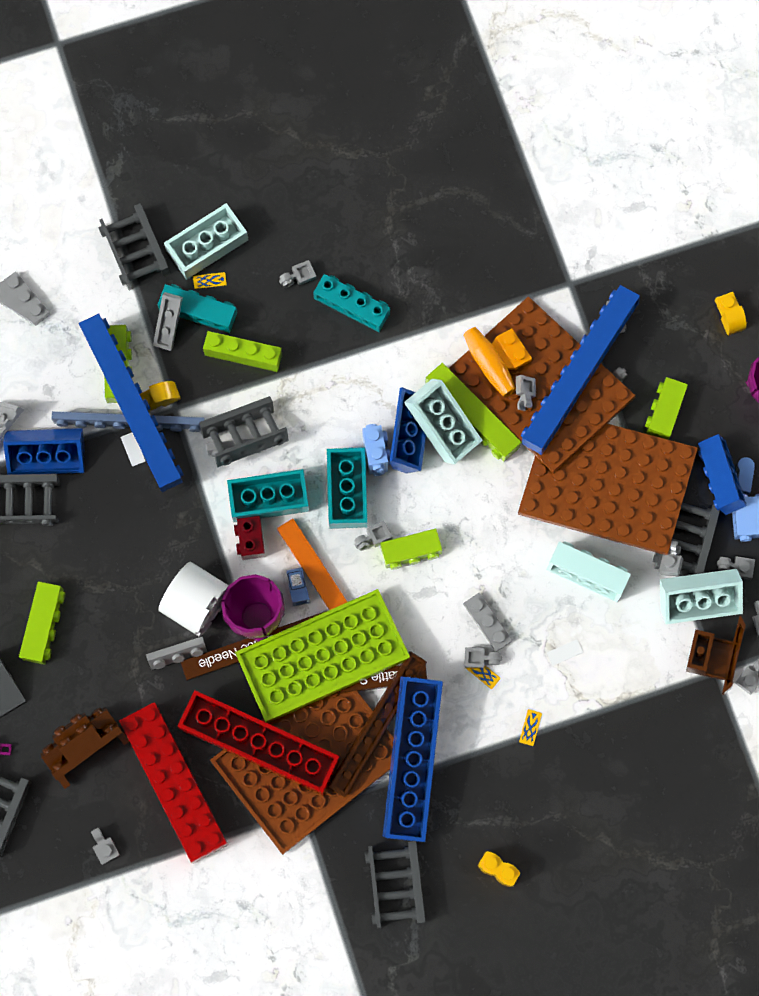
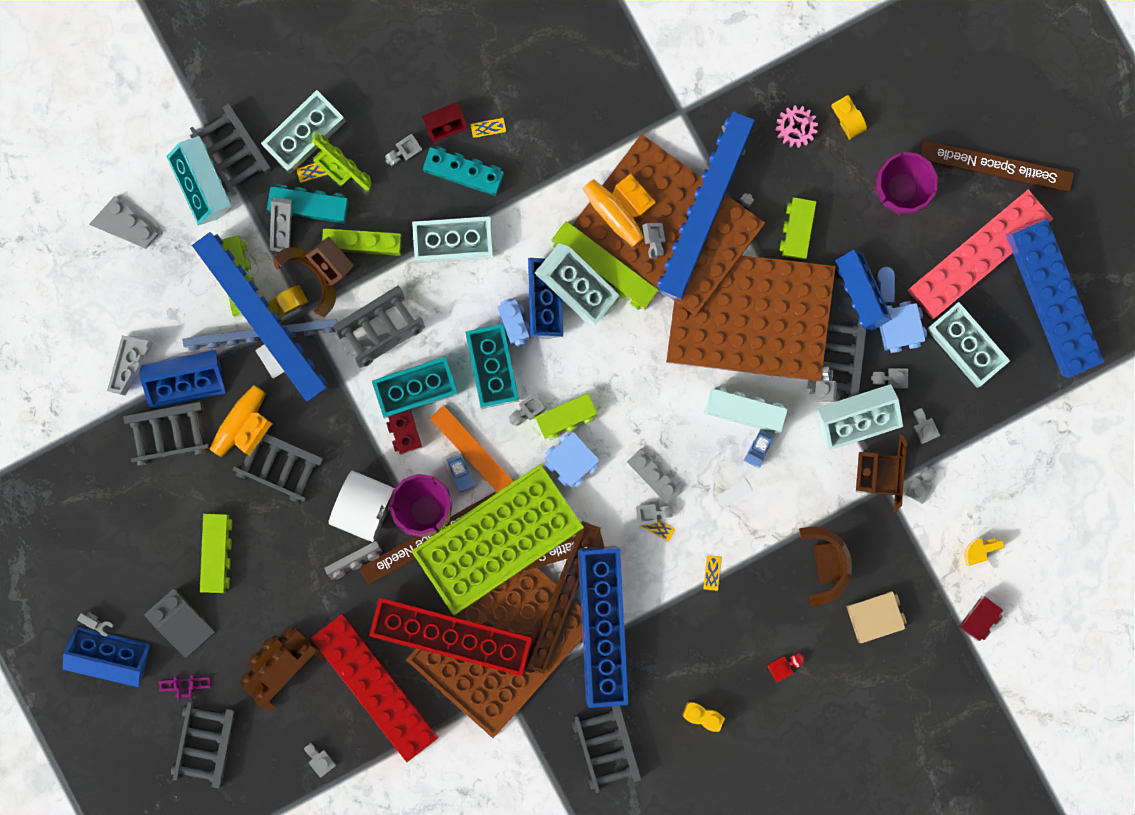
camera: 10 degrees left, 10 degrees up
(94, 503) = (242, 425): none -> light orange plate
(98, 268) = (198, 180): none -> brick
(122, 529) = (294, 454): none -> dark grey fence
(204, 363) = (326, 262): none -> reddish brown piece
(231, 275) = (336, 165): none -> lime bracket
(330, 363) = (452, 239): none -> light aqua brick
(342, 254) = (445, 122): none -> dark red brick
(382, 268) = (488, 127): none -> yellow sticker
(408, 591) = (571, 460): none -> light blue brick
(585, 834) = (781, 668): none -> red plate
(595, 612) = (759, 448): none -> medium blue leg
(653, 734) = (832, 563): none -> reddish brown piece
(682, 306) = (792, 118): none -> bright pink gear
(689, 798) = (876, 617): none -> tan panel

